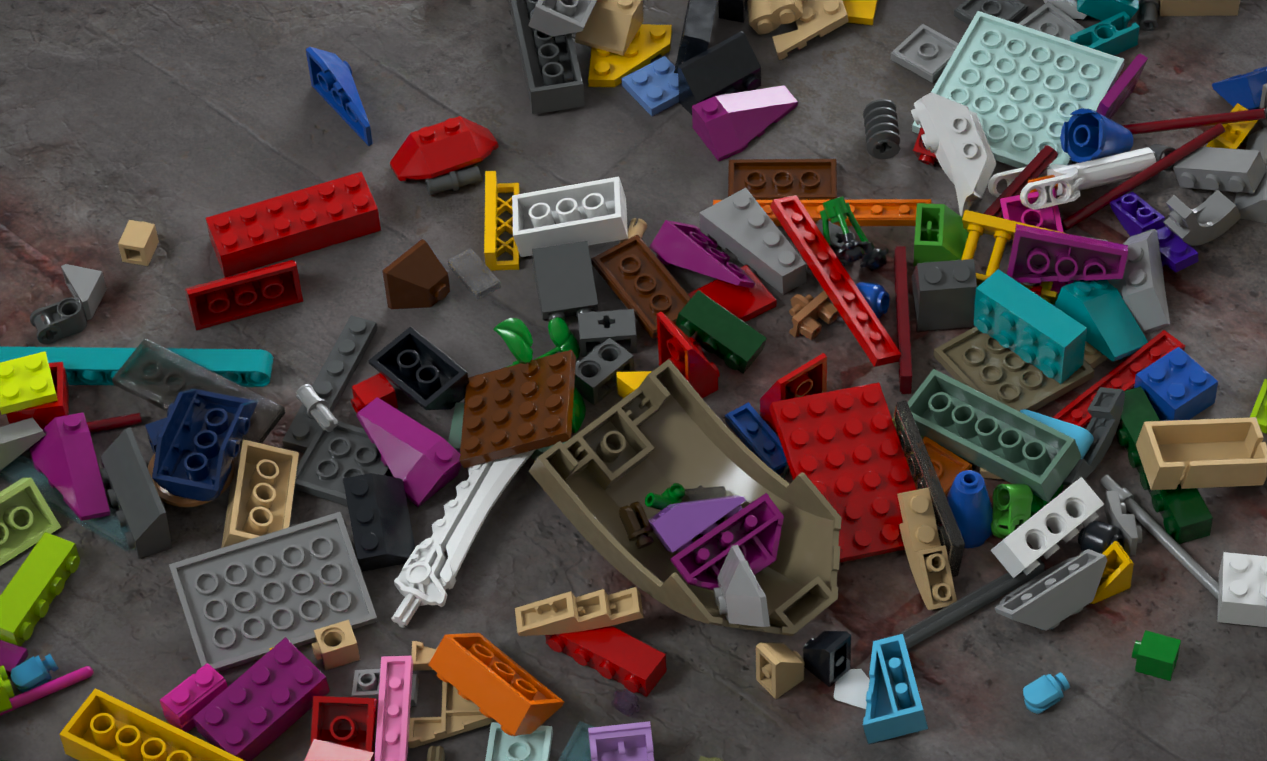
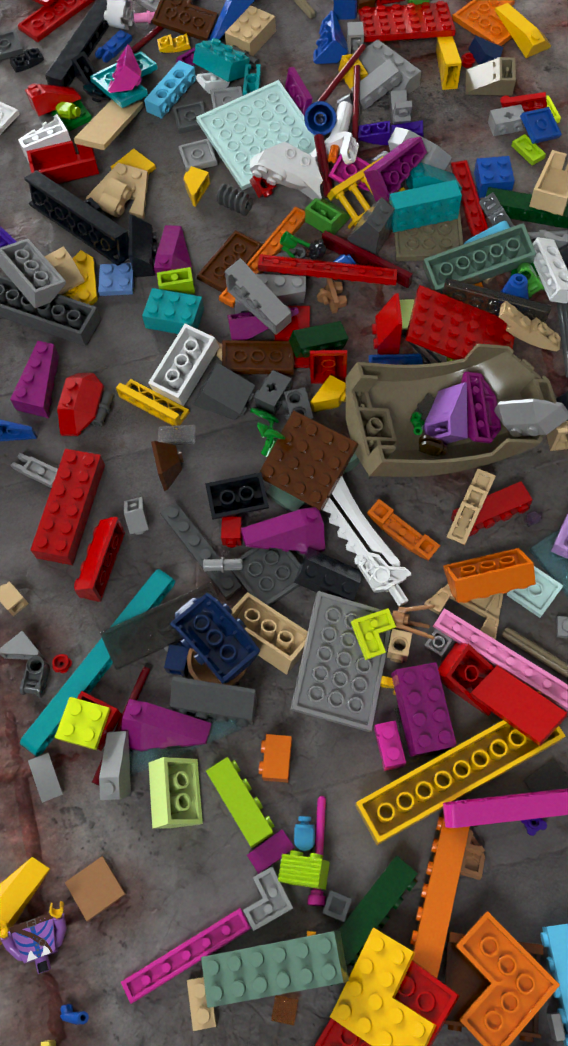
camera: 55 degrees left, 15 degrees up
(92, 335) = (61, 658): none -> red plate
(108, 597) = (276, 758): none -> orange brick
(321, 164) = (36, 469): none -> light grey hinge
(325, 592) = (368, 630): none -> neon yellow plate
(327, 293) = (136, 516): none -> light grey slope
(373, 627) = (402, 620): none -> medium nougat plant
(444, 94) = (37, 381): none -> magenta wedge
(503, 567) = (401, 531): none -> orange slope
(647, 167) = (171, 310): none -> teal brick
(692, 143) = (177, 281): none -> lime brick
(712, 222) = (257, 297): none -> light grey wedge
(872, 77) = (196, 184): none -> yellow slope

